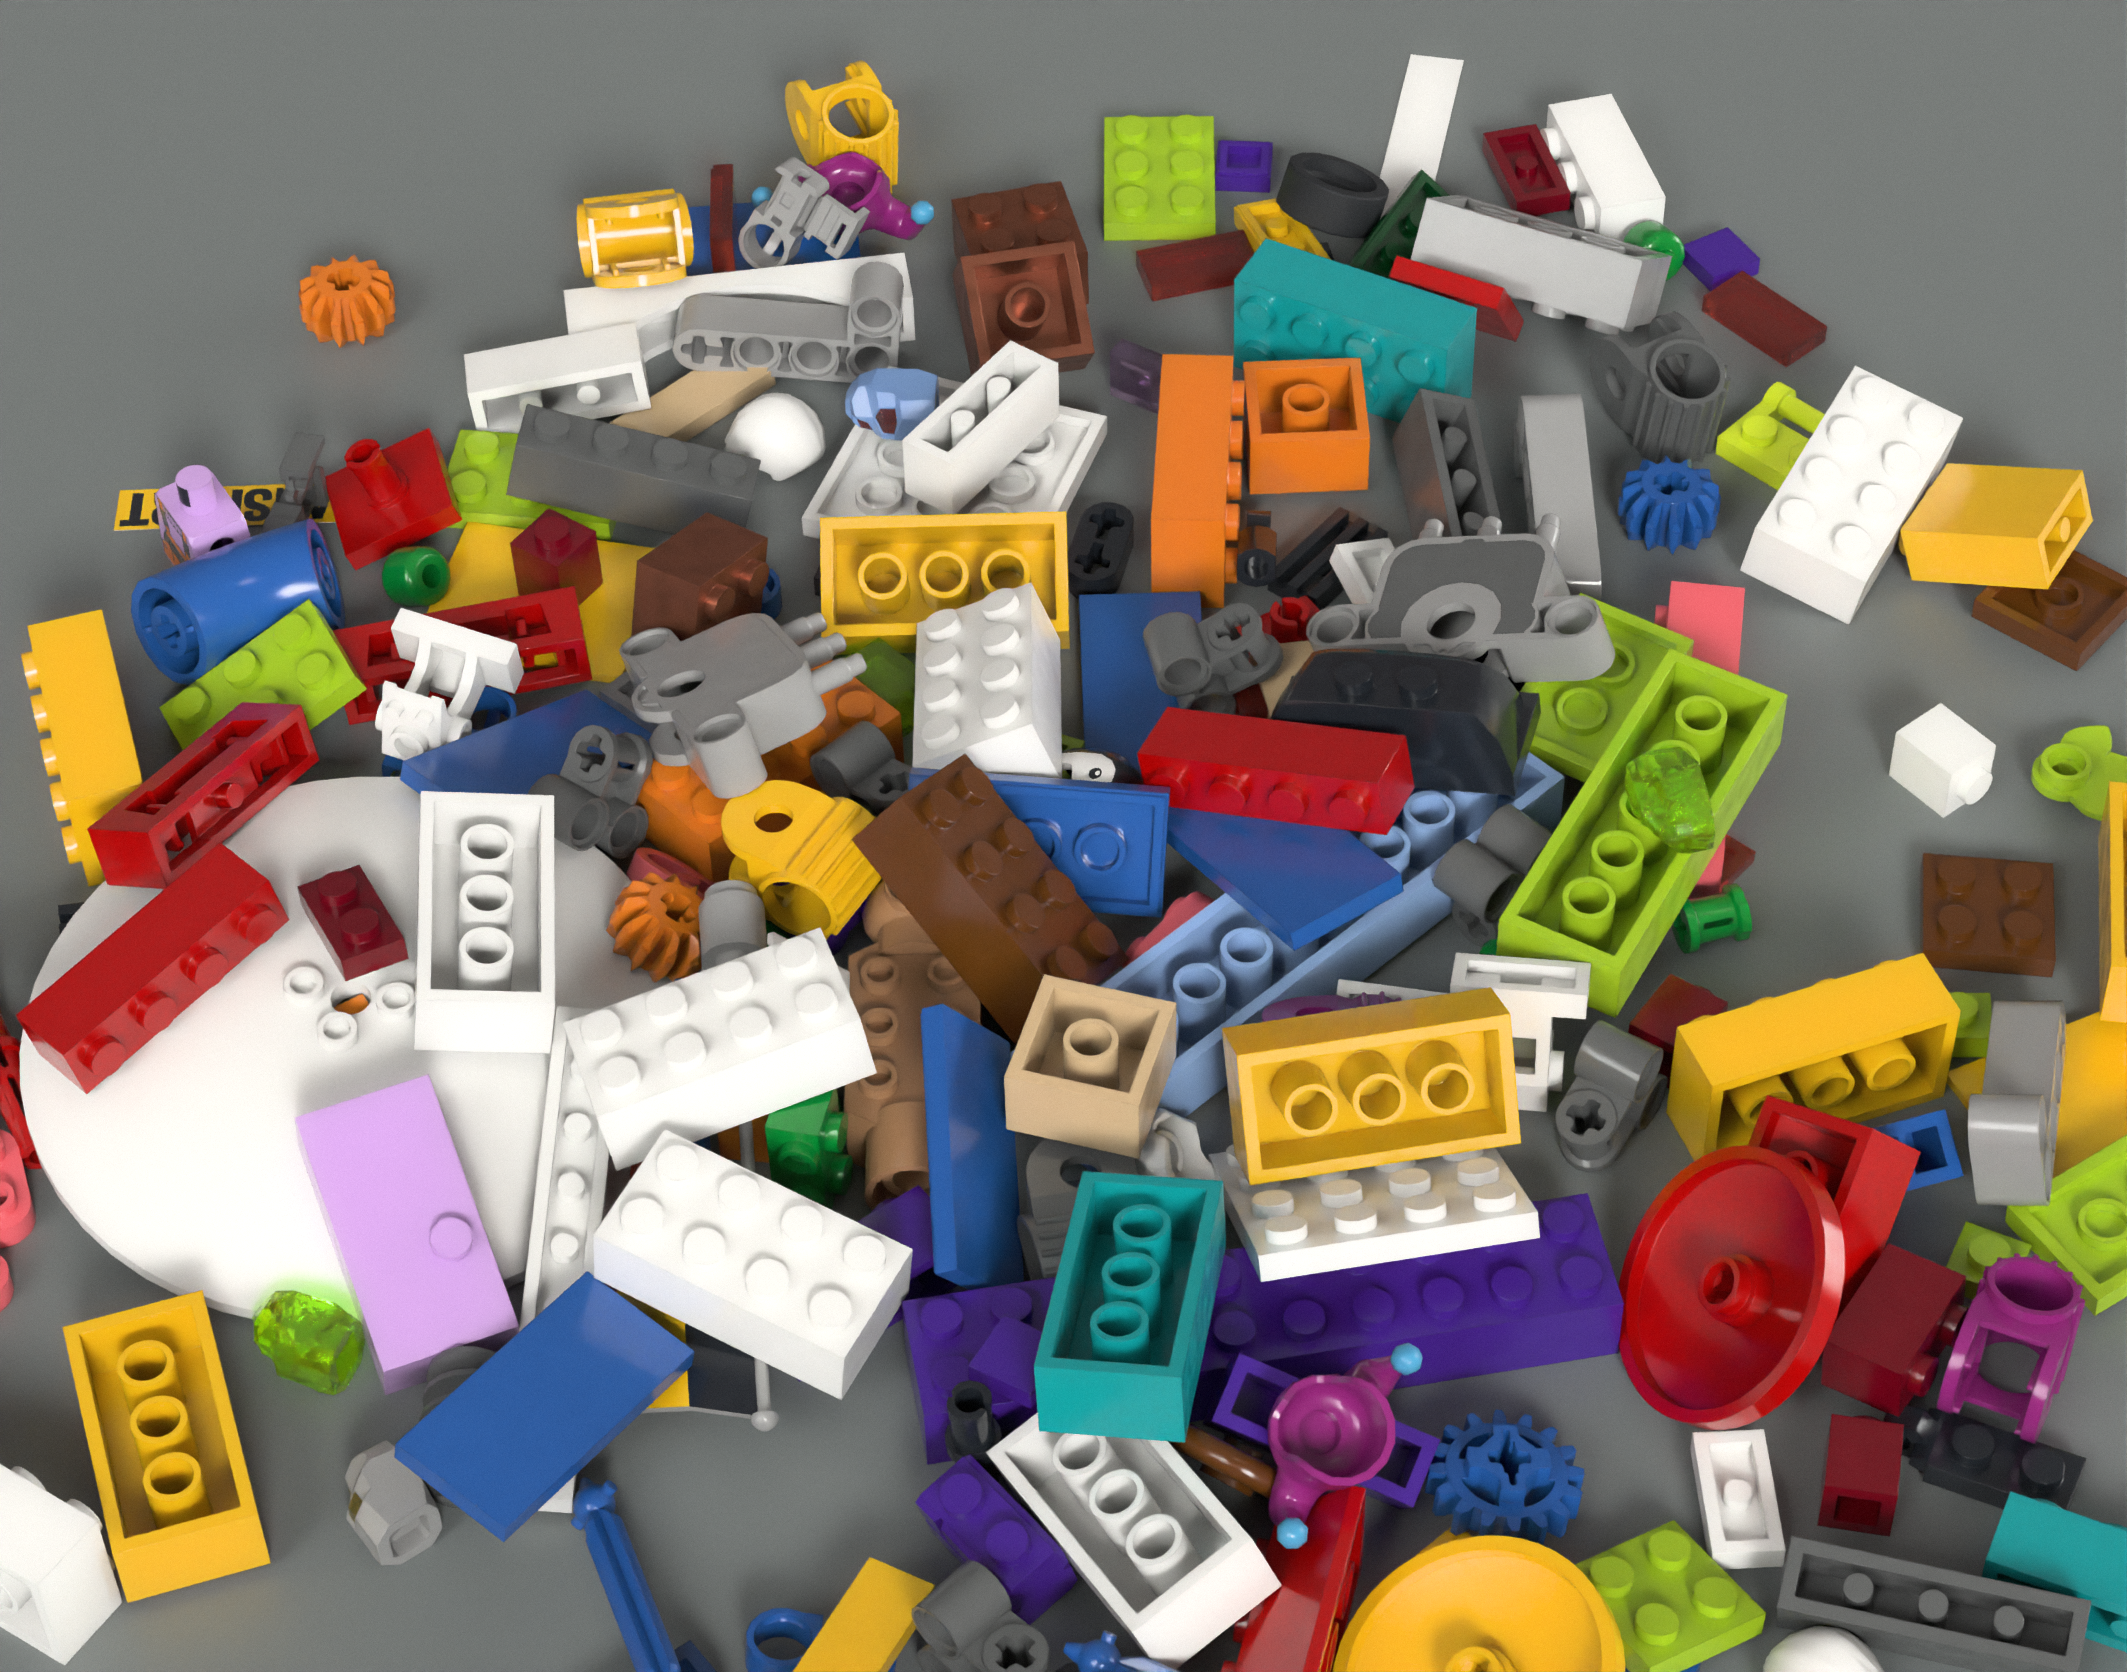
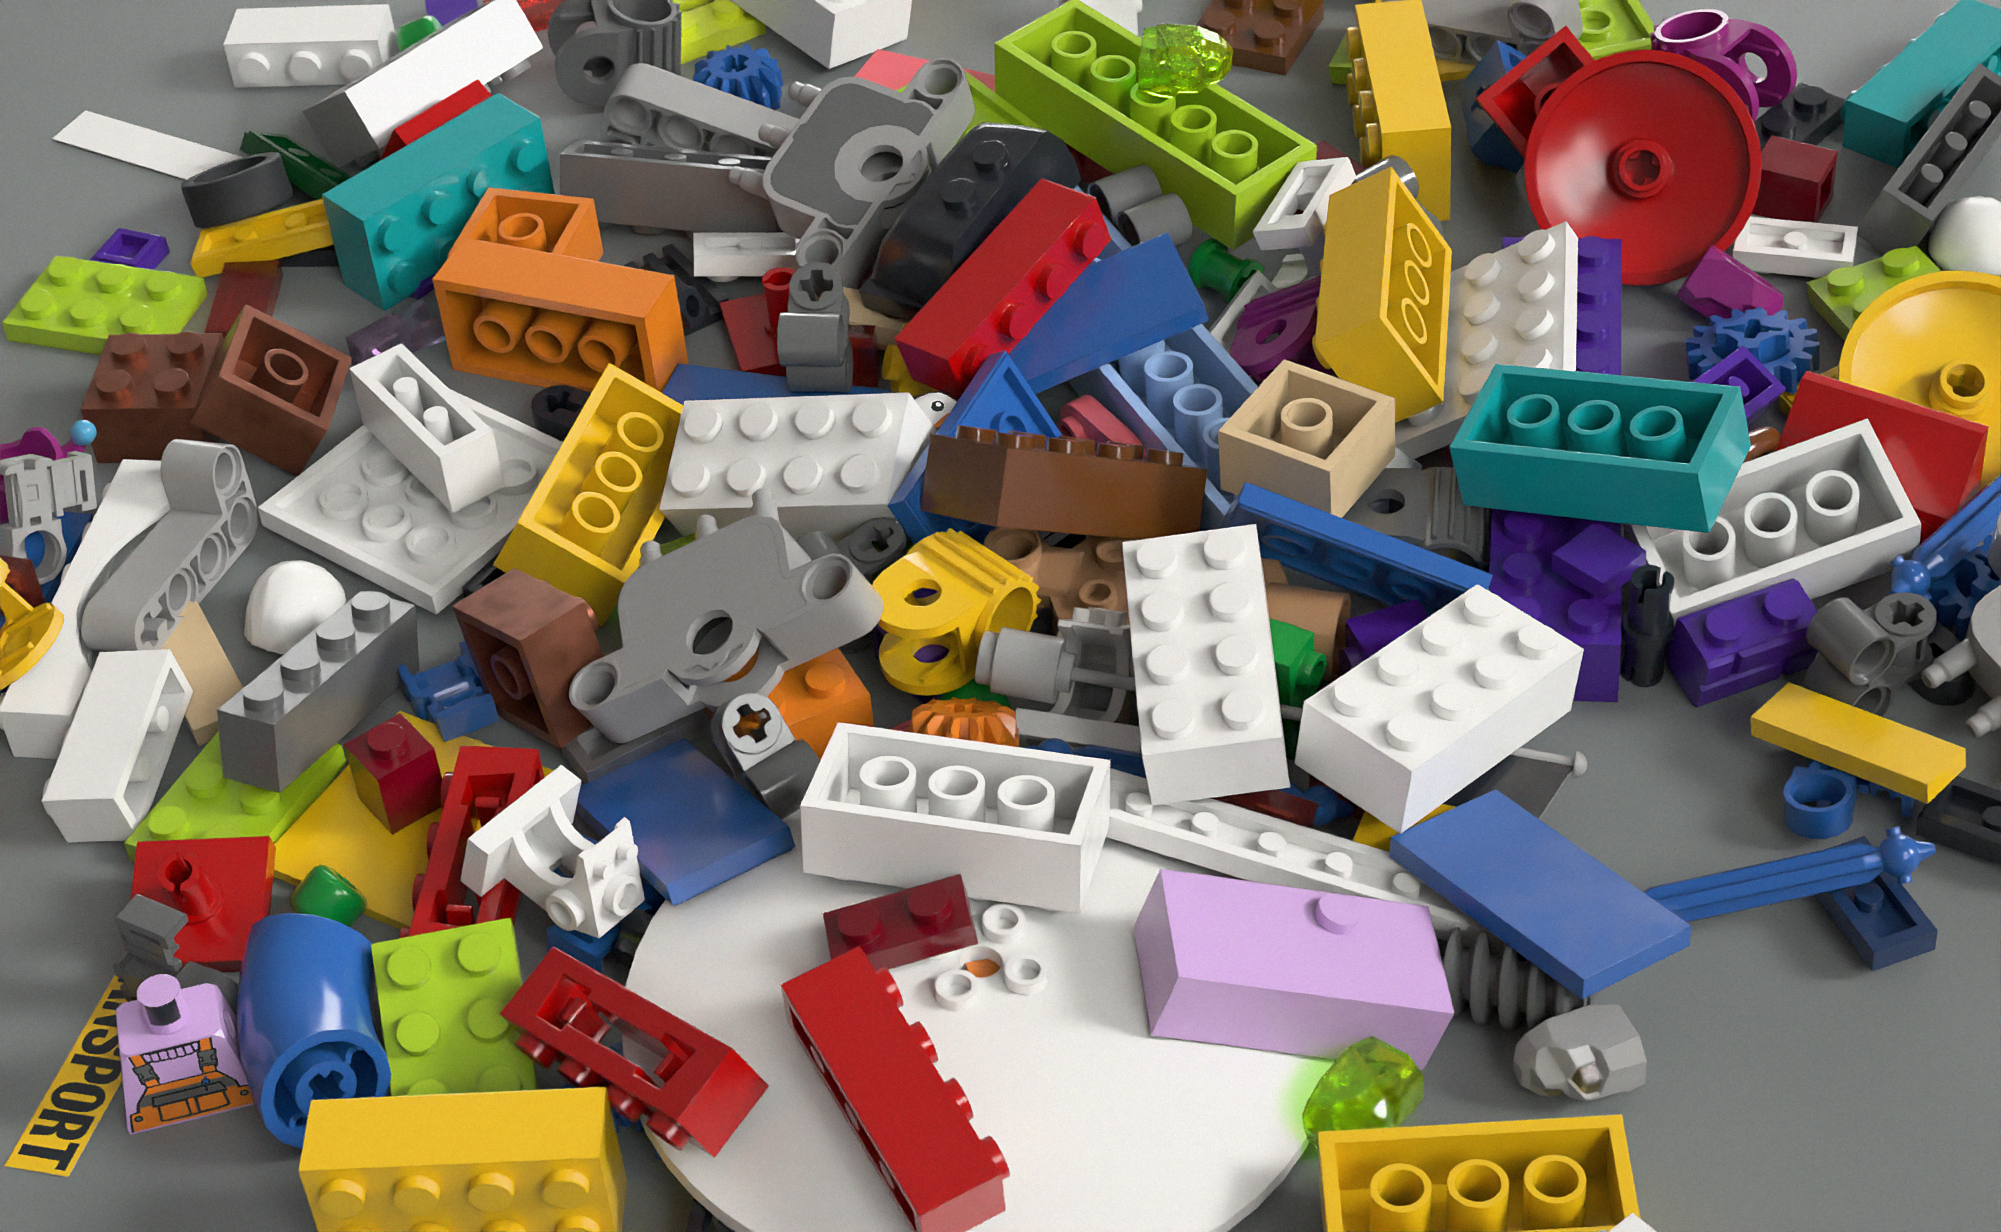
camera: 70 degrees left, 5 degrees down
(892, 400) = (346, 486): medium blue rock -> none
(1331, 1436) = (1768, 359): magenta piece -> none
(1526, 170) = (271, 90): dark red plate -> none
(1625, 1442) = (1725, 284): none -> magenta rock

